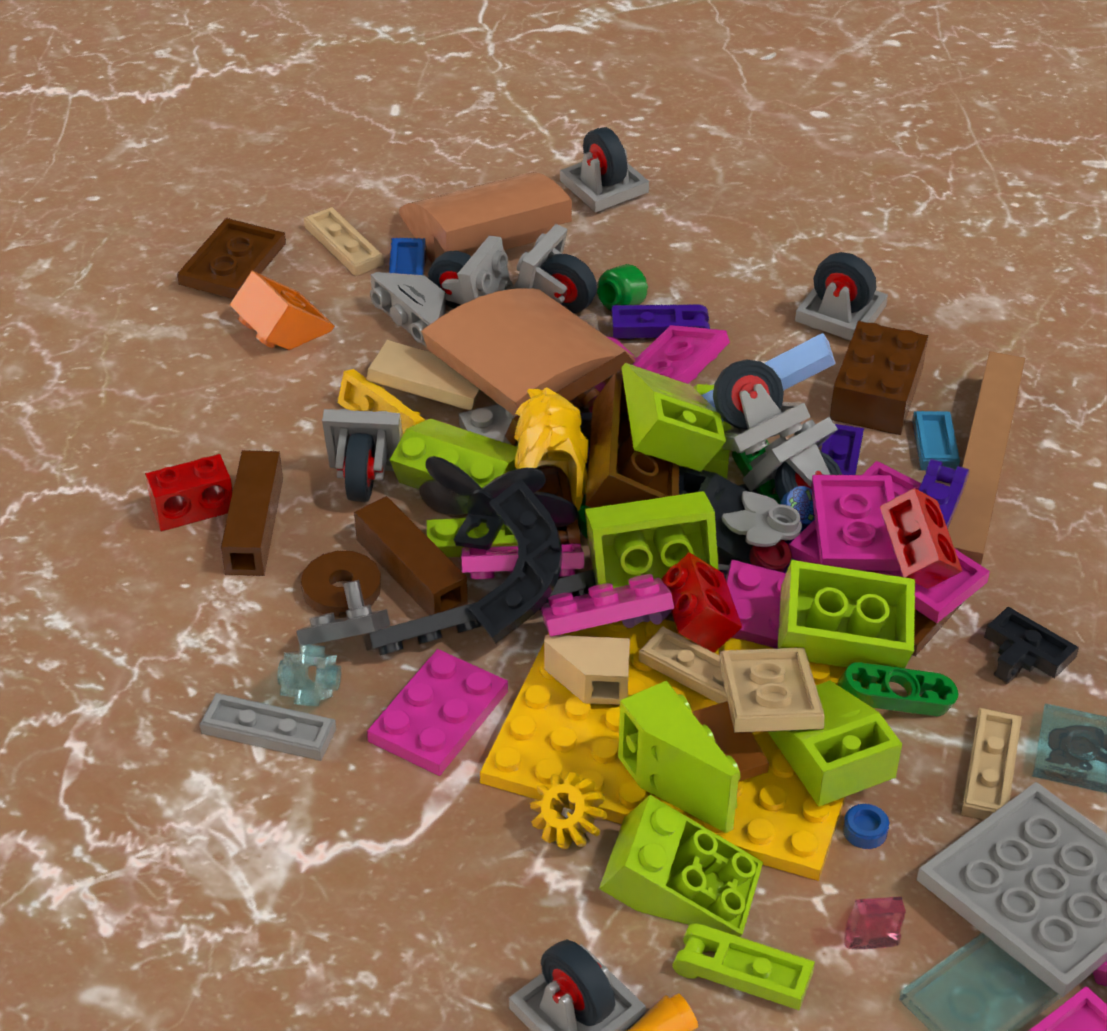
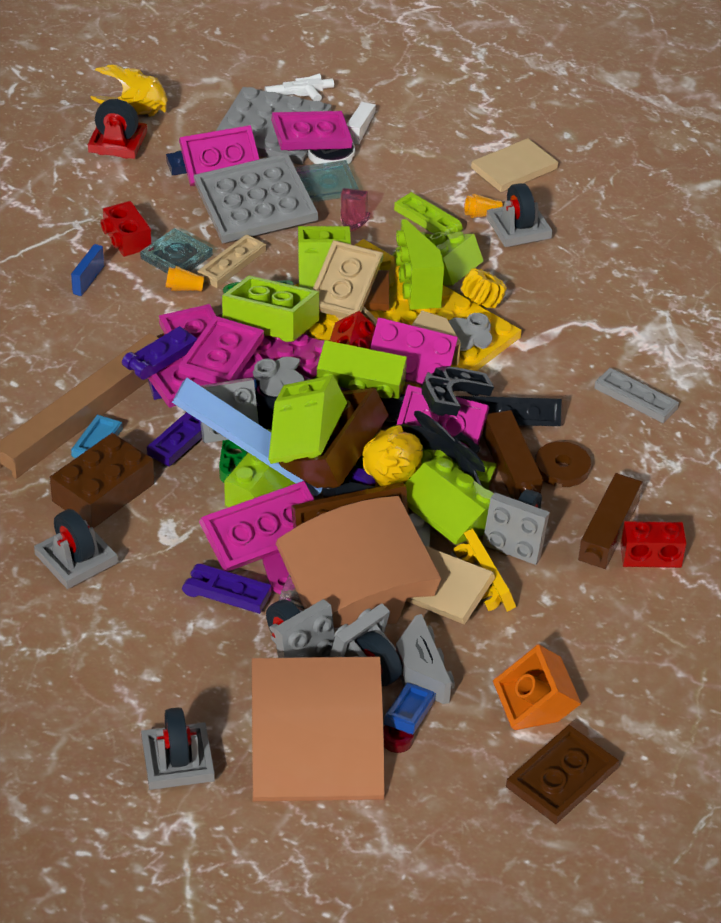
camera: 160 degrees left, 0 degrees up
(295, 680) = (608, 387): clear light blue brick -> none
(344, 241) = (451, 773): tan tile -> none
(358, 621) = (573, 415): flat silver plate -> none
(437, 712) = (531, 372): dark pink plate -> none
(550, 710) = (472, 331): none -> light grey plate
(622, 286) = (239, 622): green head -> none
(751, 400) = (250, 393): plate -> none
(920, 538) = (201, 308): red brick -> none
(1027, 646) = (159, 299): black hinge -> none
(1027, 687) = (183, 280): none -> light orange cone

